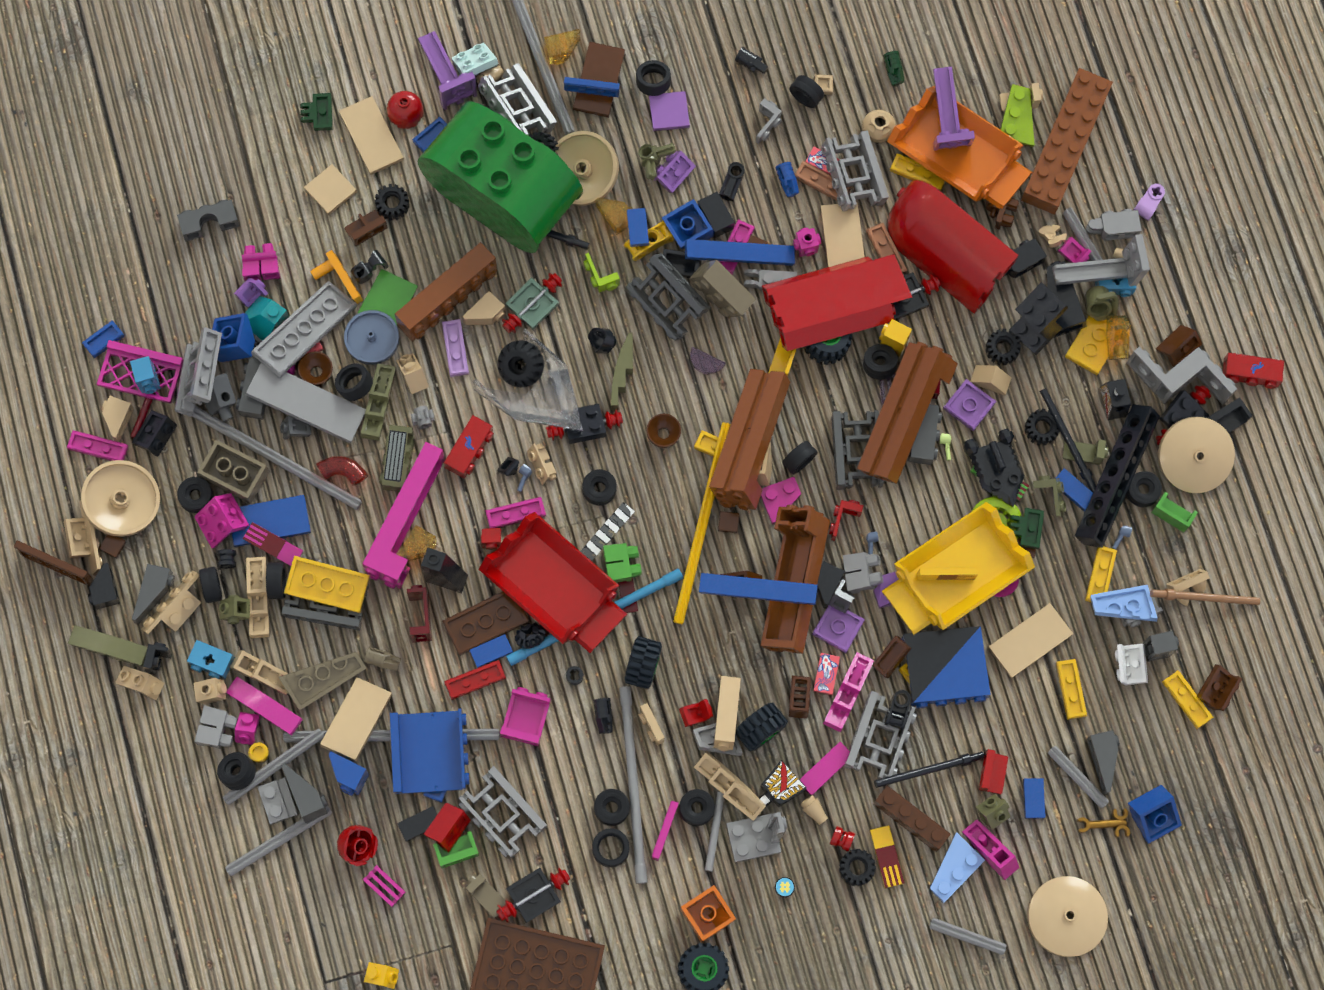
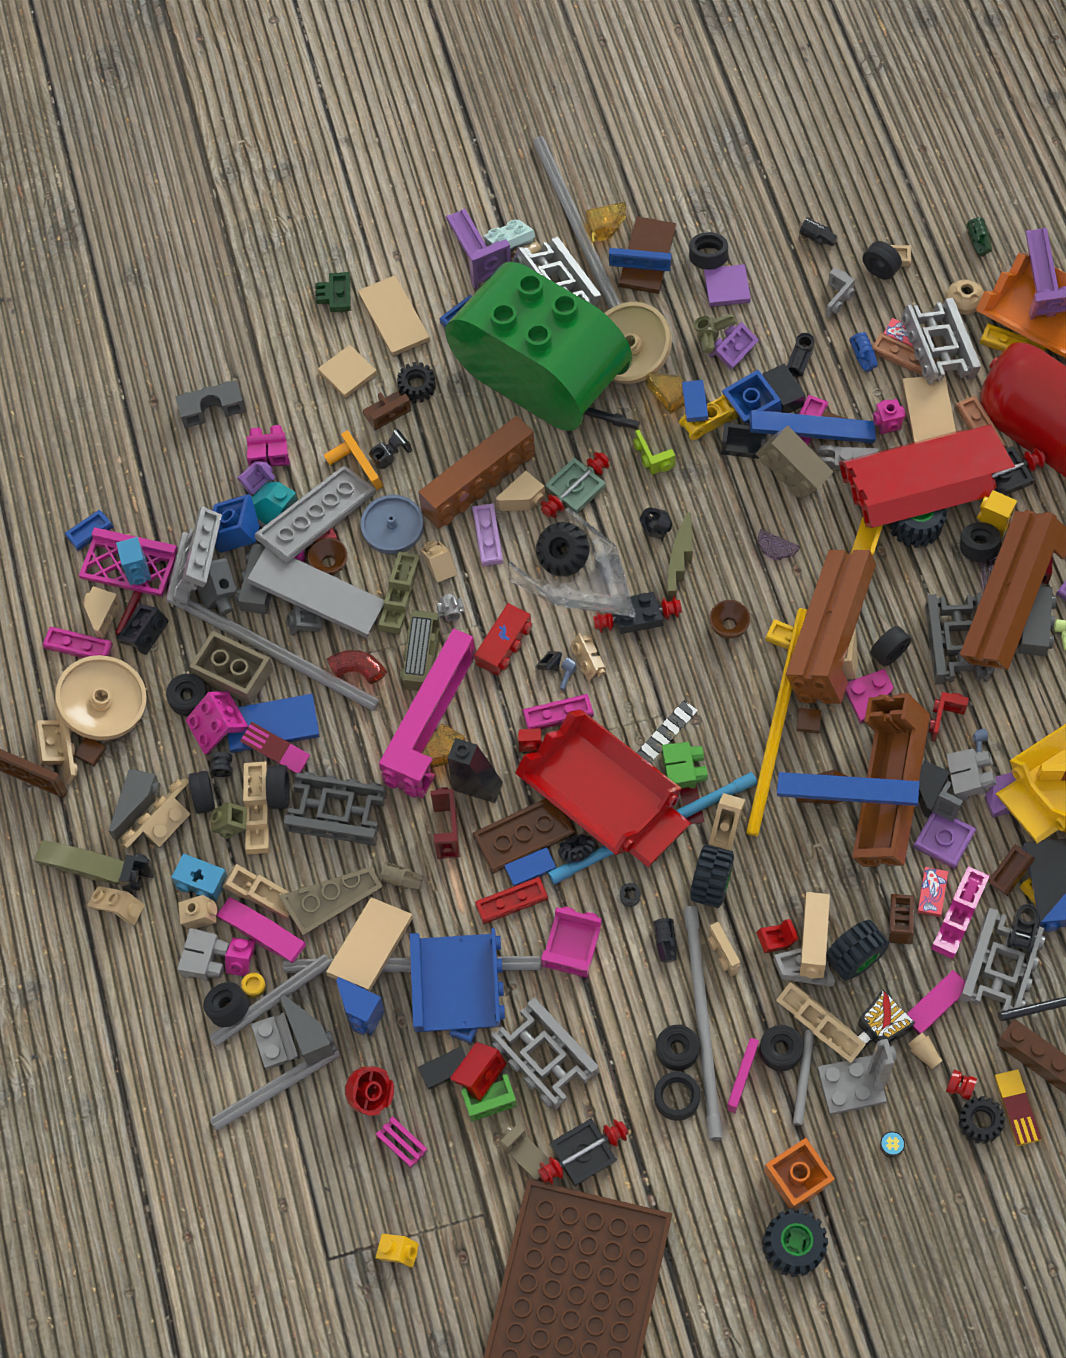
camera: 10 degrees right, 10 degrees down
(103, 589) = (78, 799): black slope -> none
(327, 584) = (337, 789): yellow tile -> none
(358, 391) = (376, 577): black tyre -> none
(388, 294) = (410, 477): bright green sticker -> none
(405, 109) = (431, 288): red cylinder -> none
(595, 477) = (655, 670): black tyre -> none
(657, 612) = (726, 821): none -> tan slope
(677, 286) = (743, 462): dark grey fence -> none

